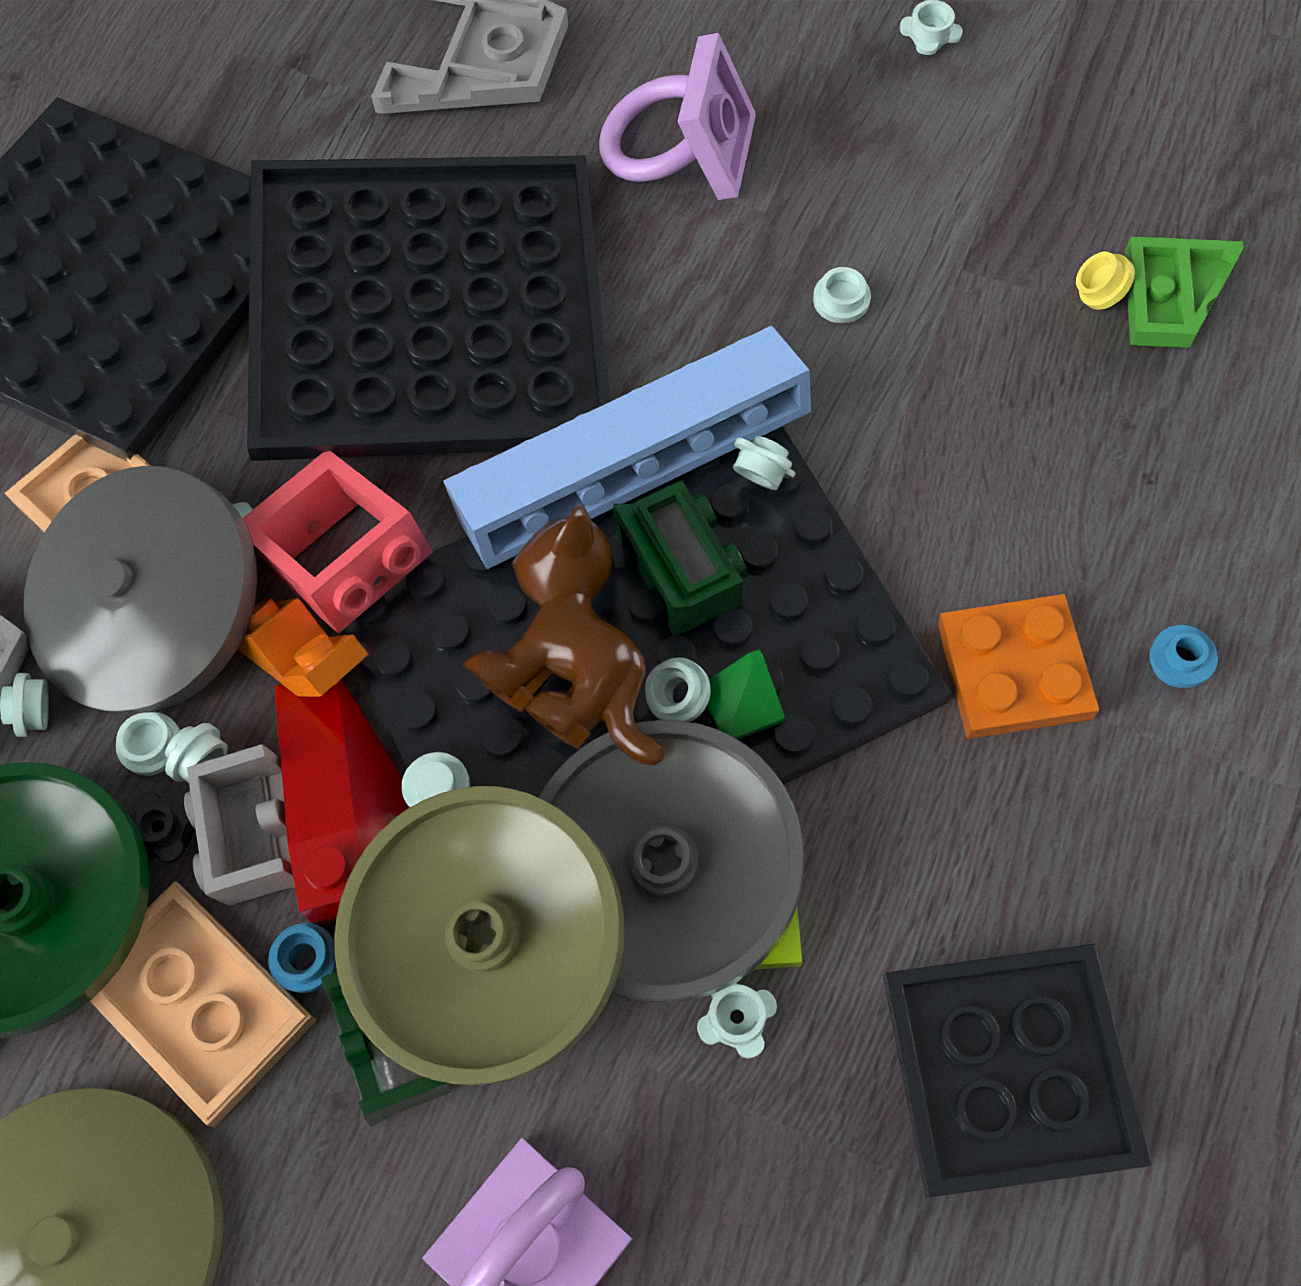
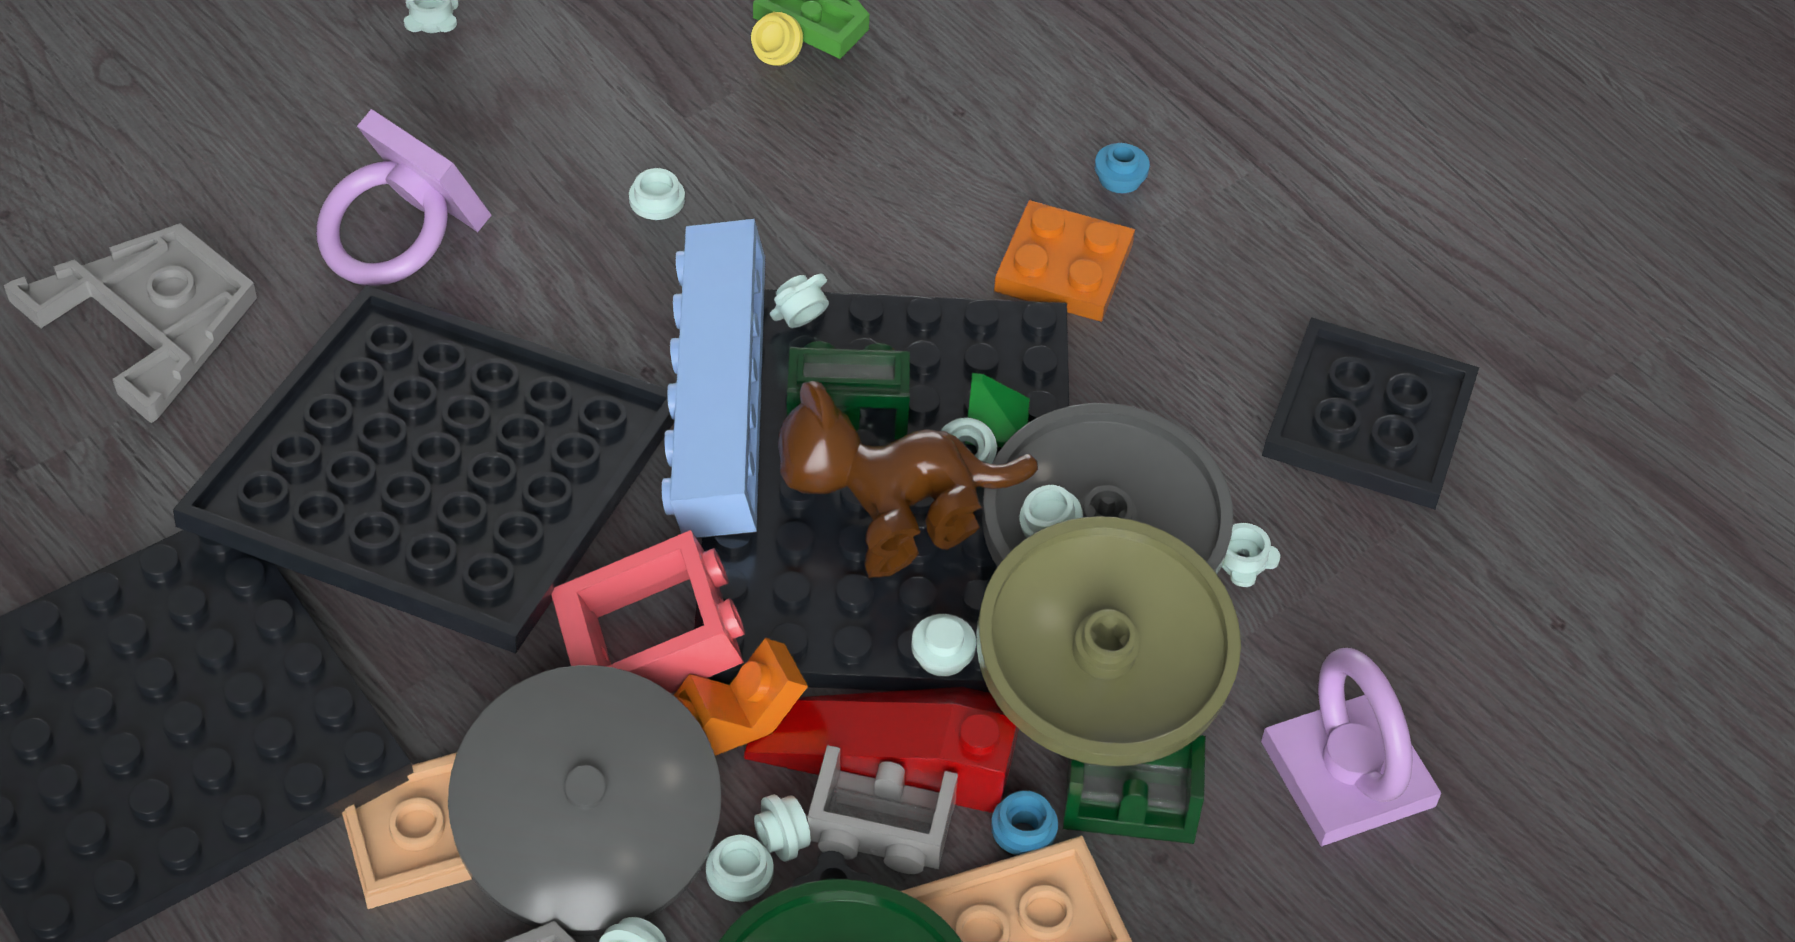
camera: 70 degrees left, 15 degrees down
(612, 806) = (1048, 507): none -> light aqua plate

